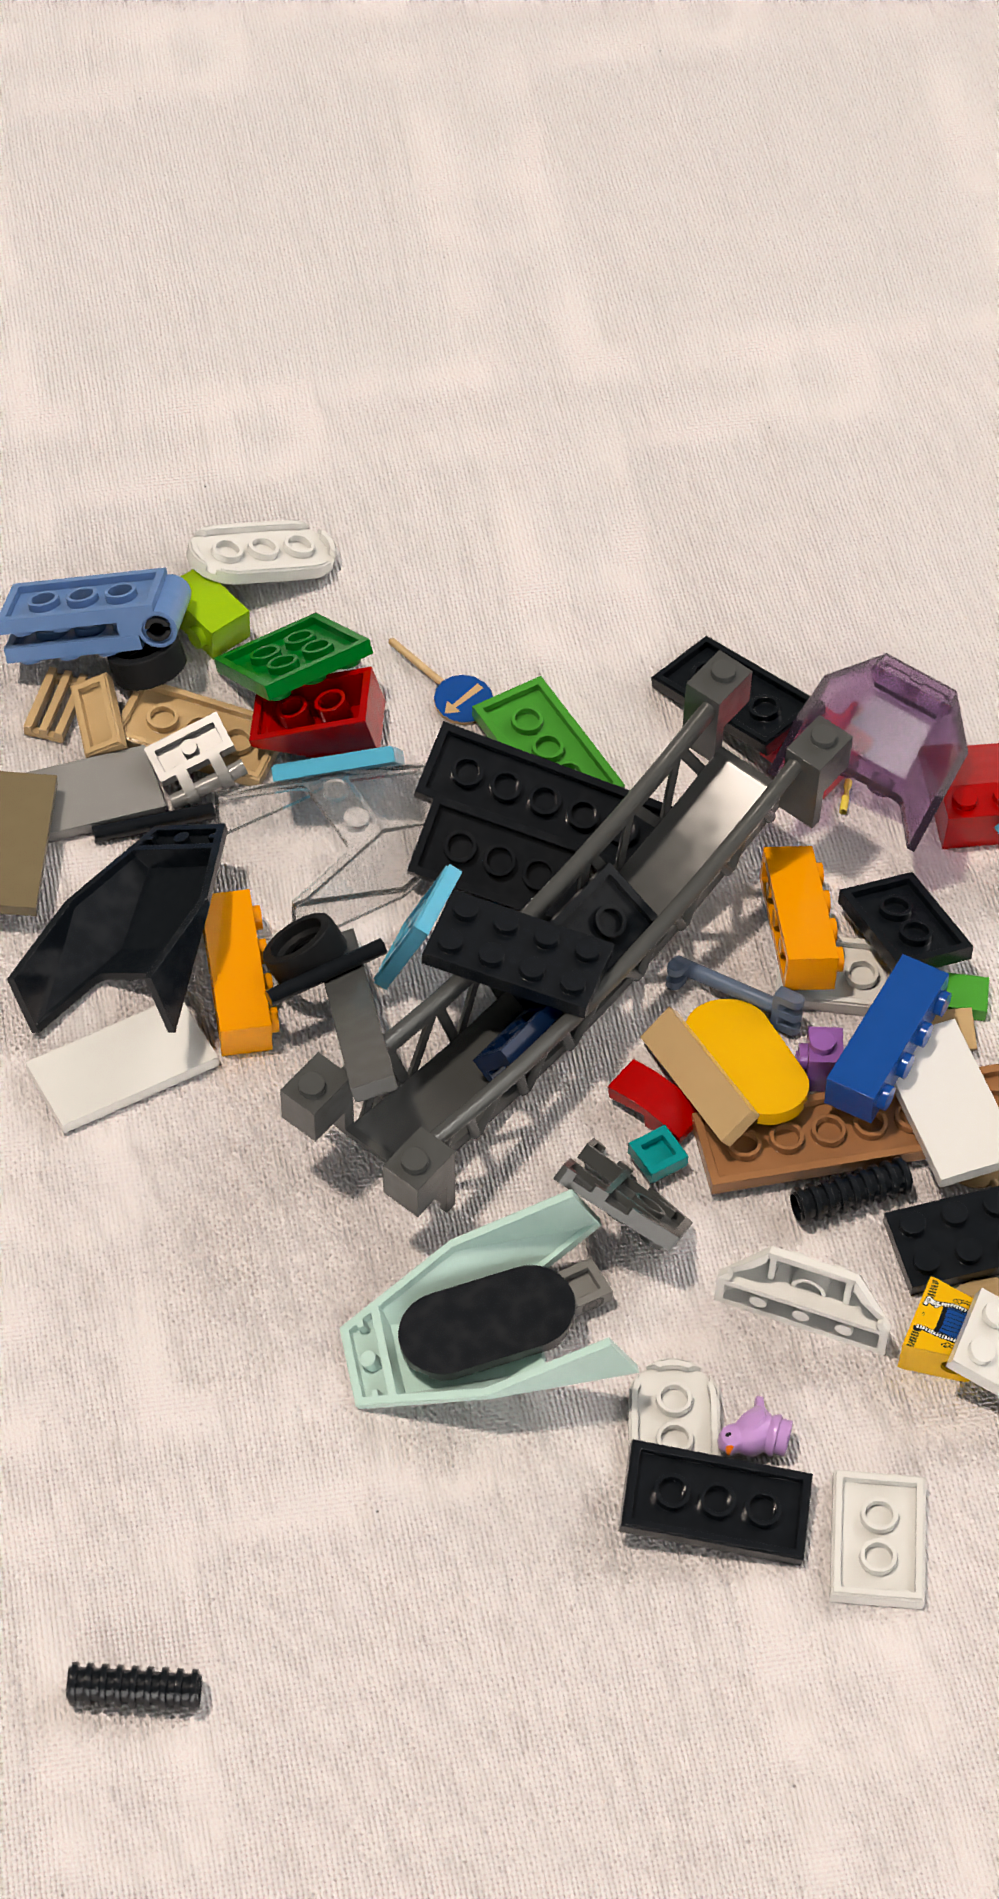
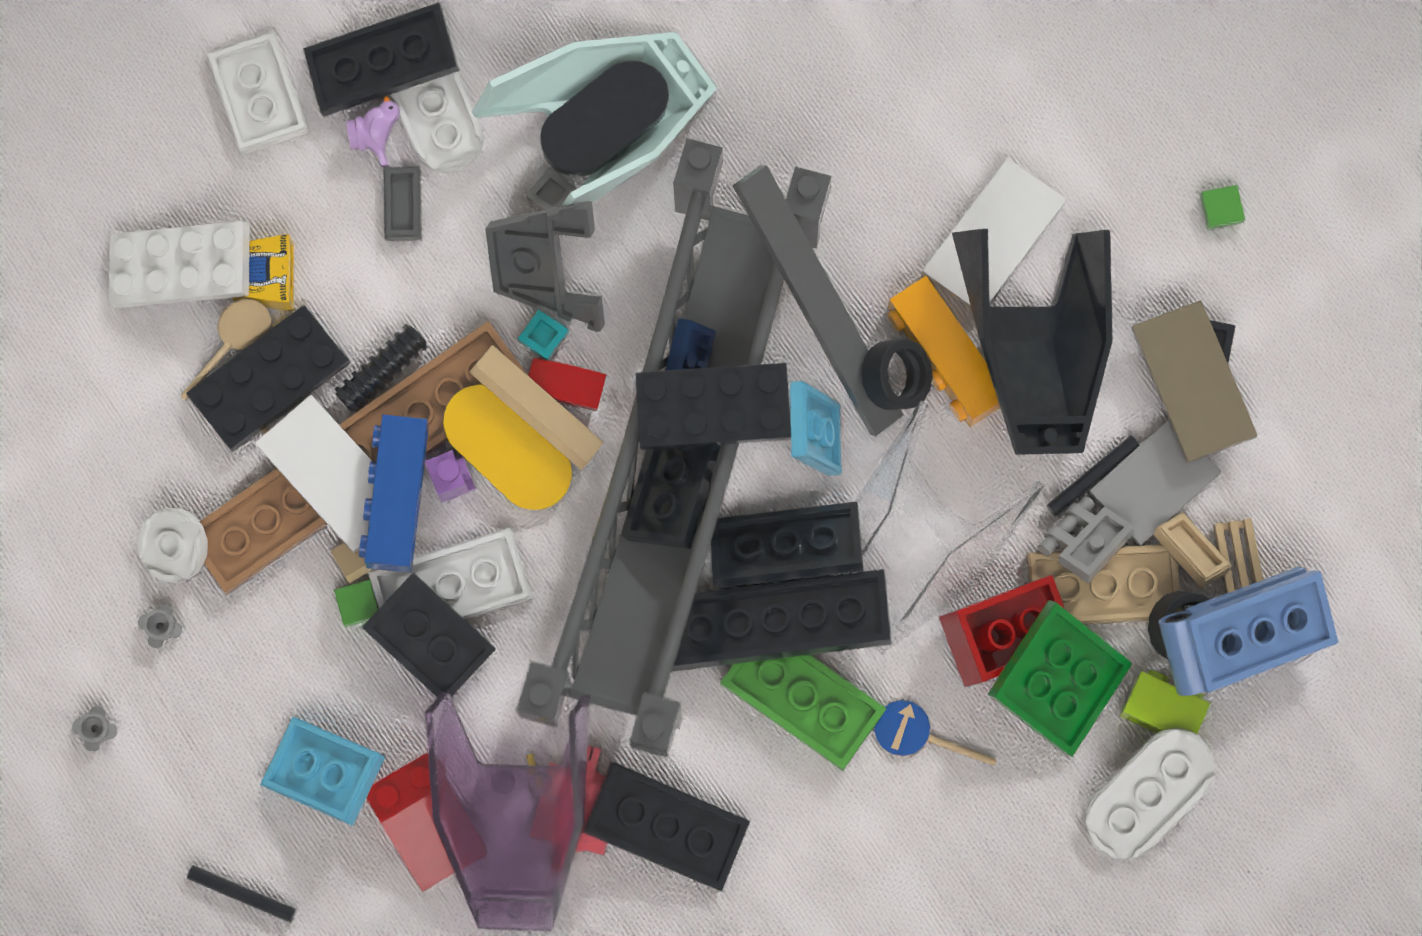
camera: 160 degrees right, 25 degrees up
(326, 972) = (865, 347): black bar -> none
(349, 761) = (960, 571): medium azure tile -> none
(755, 1352) = (402, 203): none -> dark grey tile
(783, 1005) = (539, 518): sand blue hinge -> none
(800, 918) = (514, 595): light orange brick -> none
(807, 1296) = (380, 259): white wedge -> none

